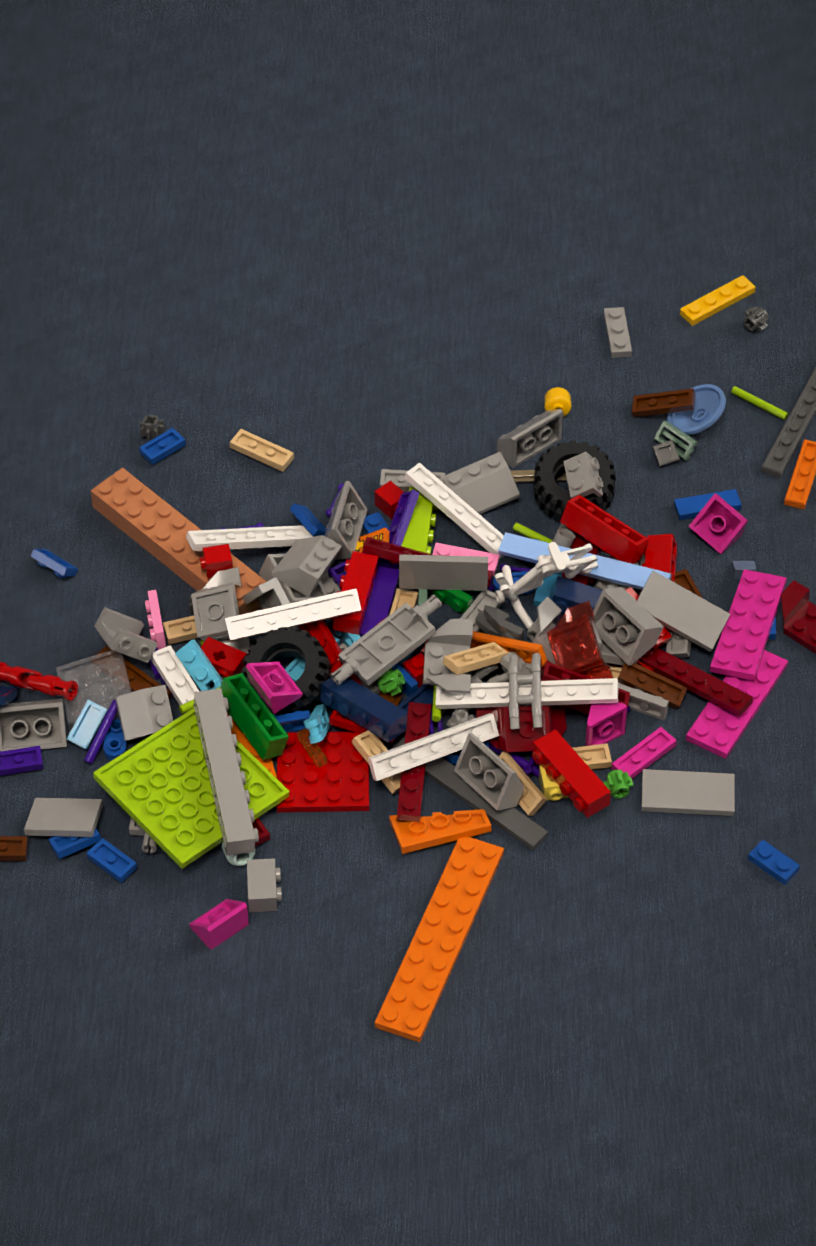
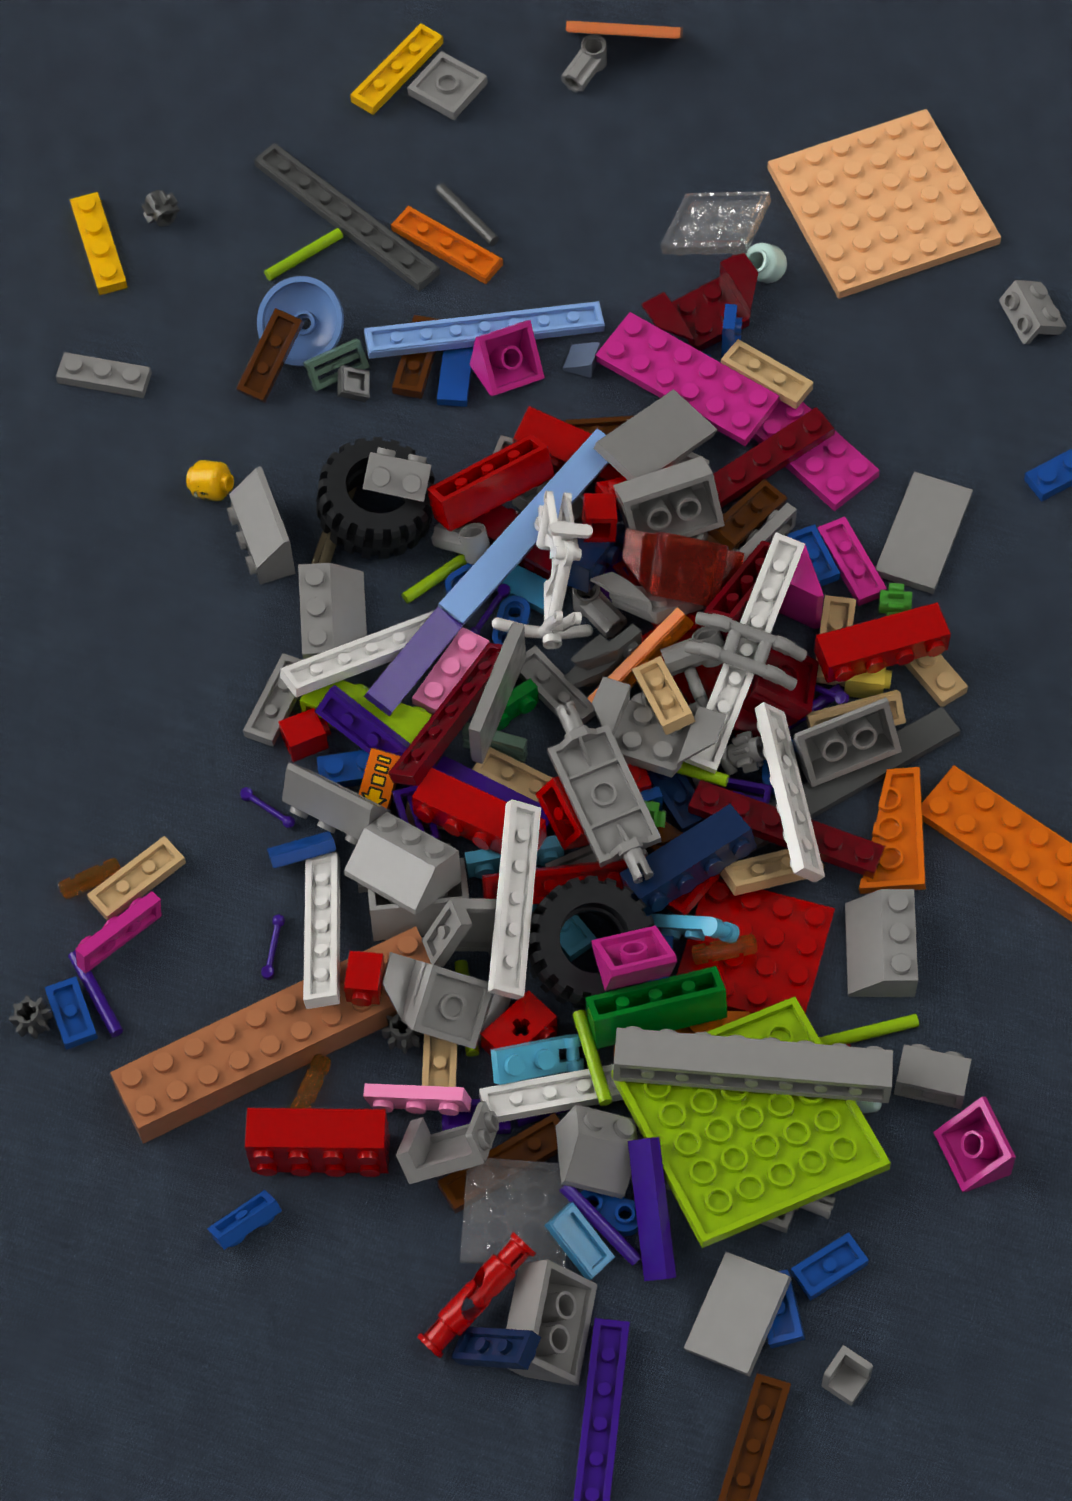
camera: 70 degrees left, 10 degrees up
(40, 884) = (847, 1375): none -> light grey panel
(109, 573) = (317, 1141): none -> red brick
(115, 750) = (651, 1209): none -> dark purple tile
(153, 571) = (312, 1082): none -> clear orange axle
(180, 455) = (98, 998): none -> dark purple bar
(220, 449) = (118, 931): none -> dark pink plate
(254, 428) = (88, 878): none -> clear orange axle
(286, 847) = (872, 1030): none -> lime bar
(351, 840) = (881, 944): none -> light grey slope
(458, 532) = (413, 661): none -> tile
(574, 826) = (938, 678): none -> tan plate
(593, 587) = (601, 514): none -> red brick
(636, 731) = (820, 556): none -> blue plate
(703, 480) = (413, 370): none -> reddish brown plate
(724, 486) = (462, 331): none -> light blue tile
(770, 665) = (768, 373): none -> tan plate
(793, 636) = (731, 328): none -> blue plate

